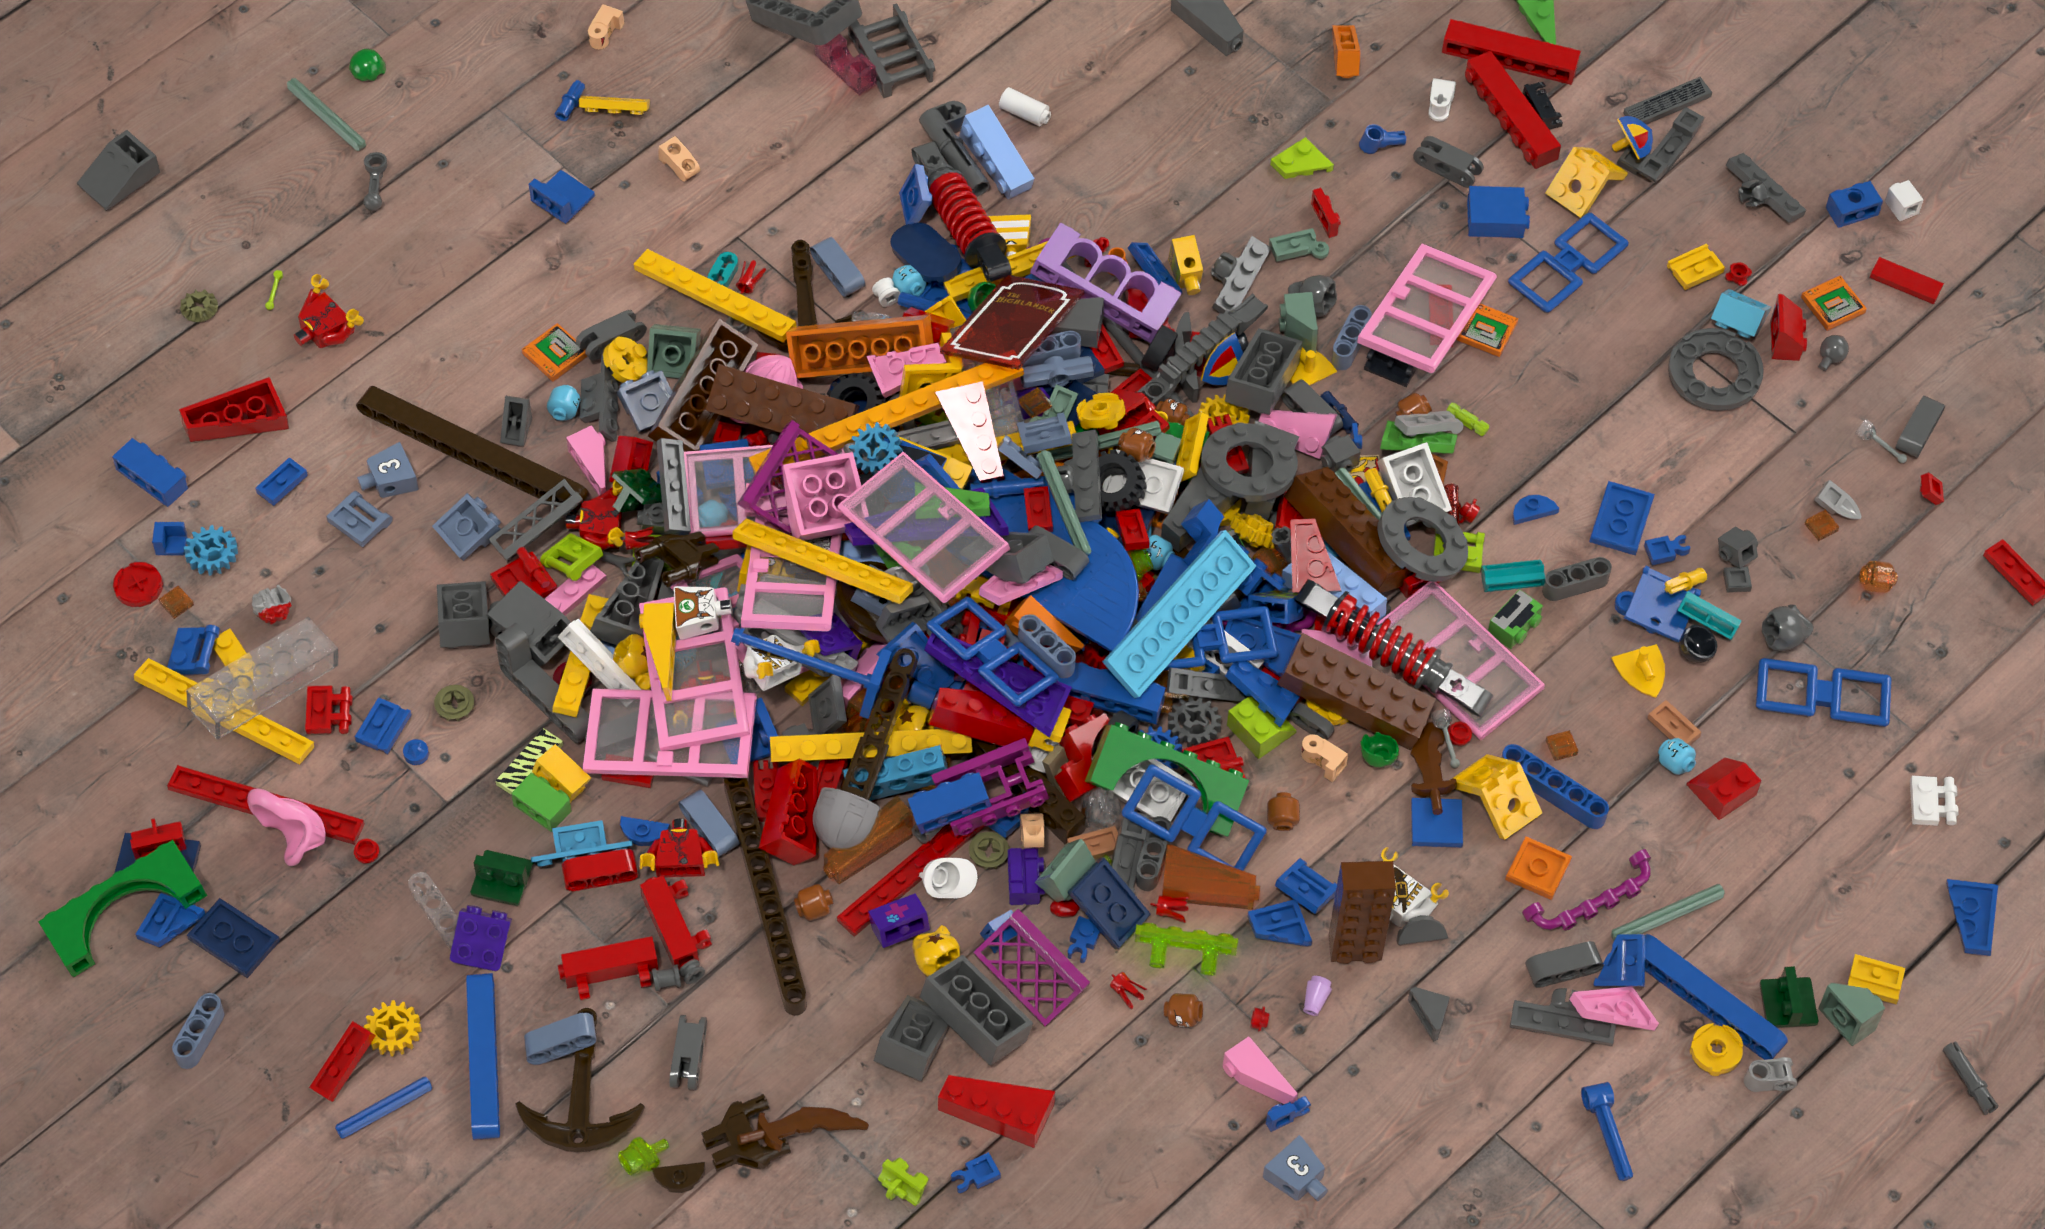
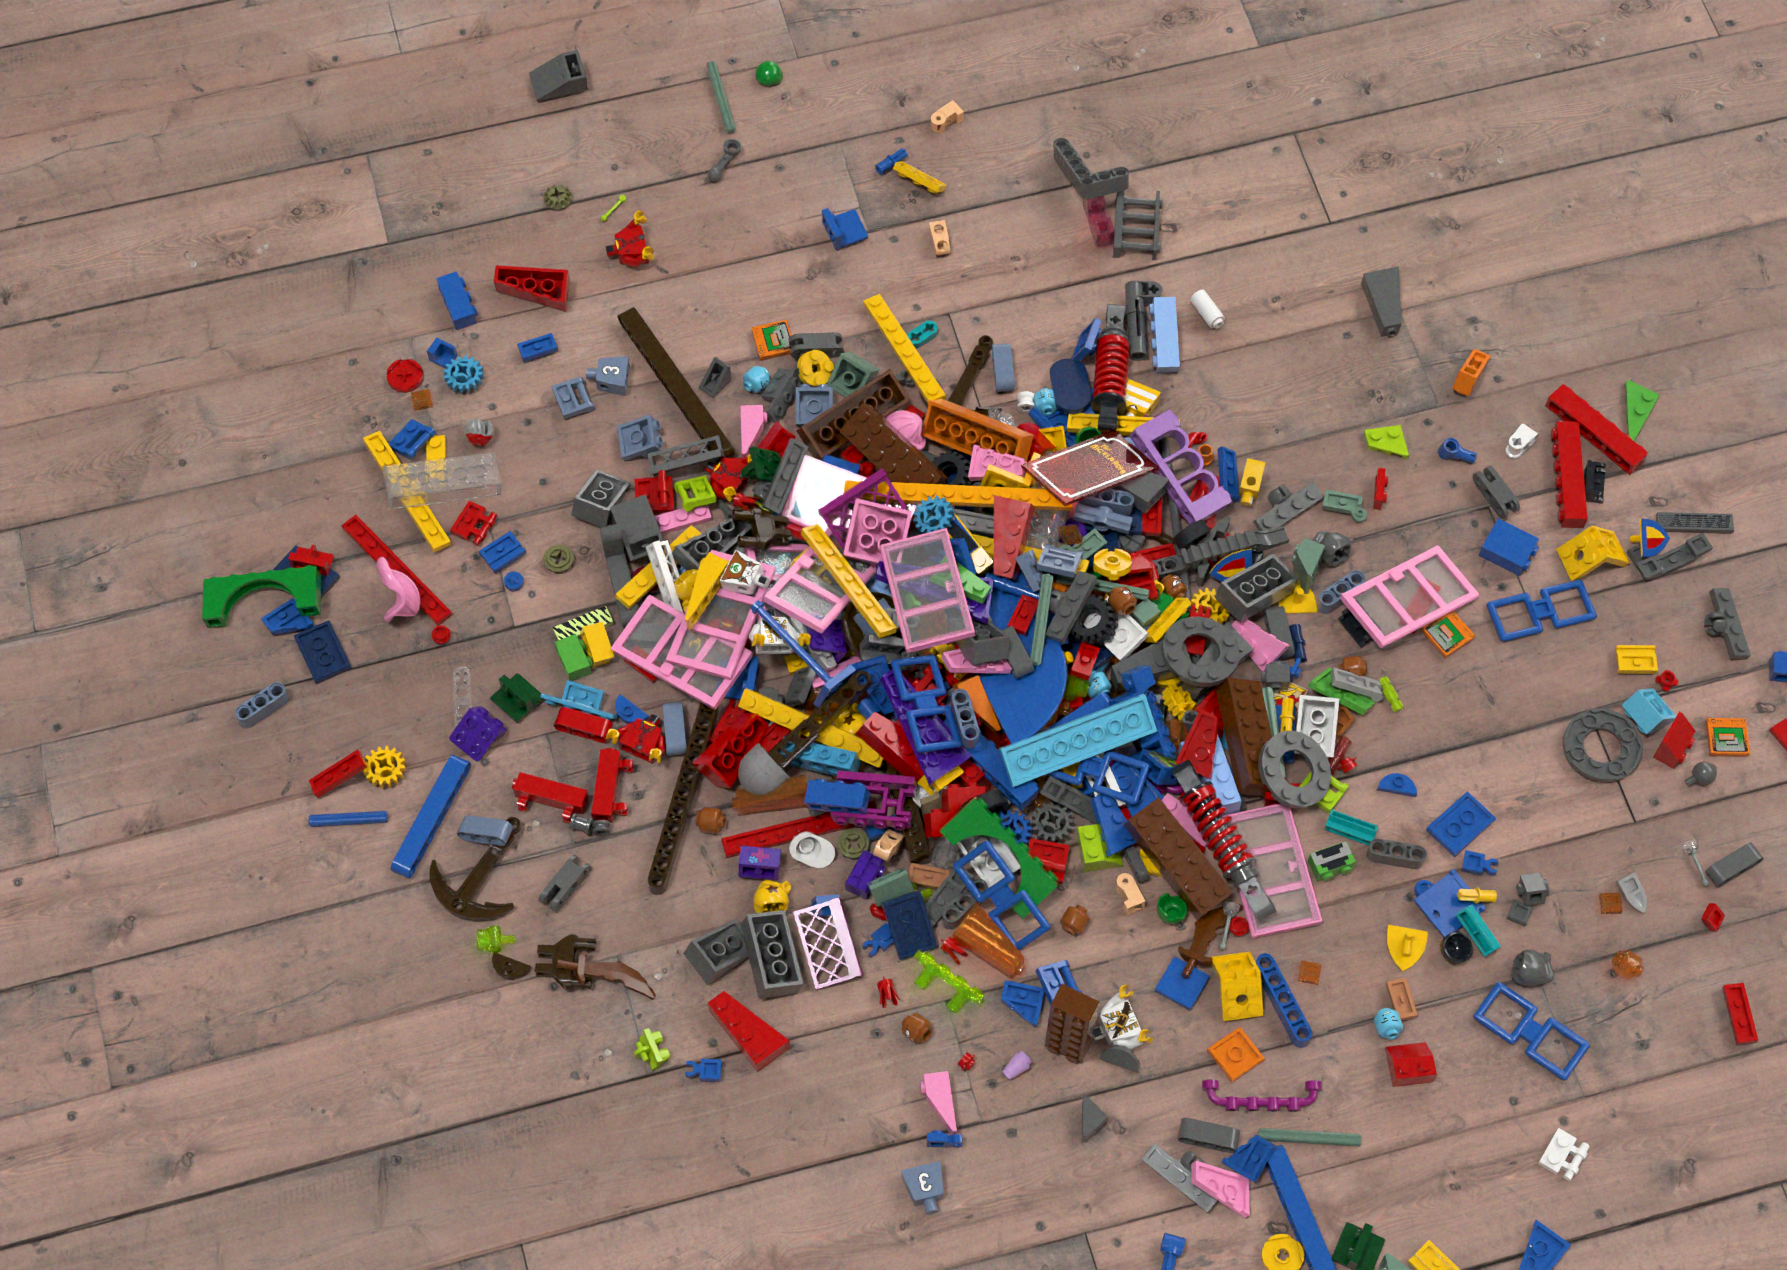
camera: 30 degrees right, 5 degrees up
(746, 283) = (932, 349): red piece -> none

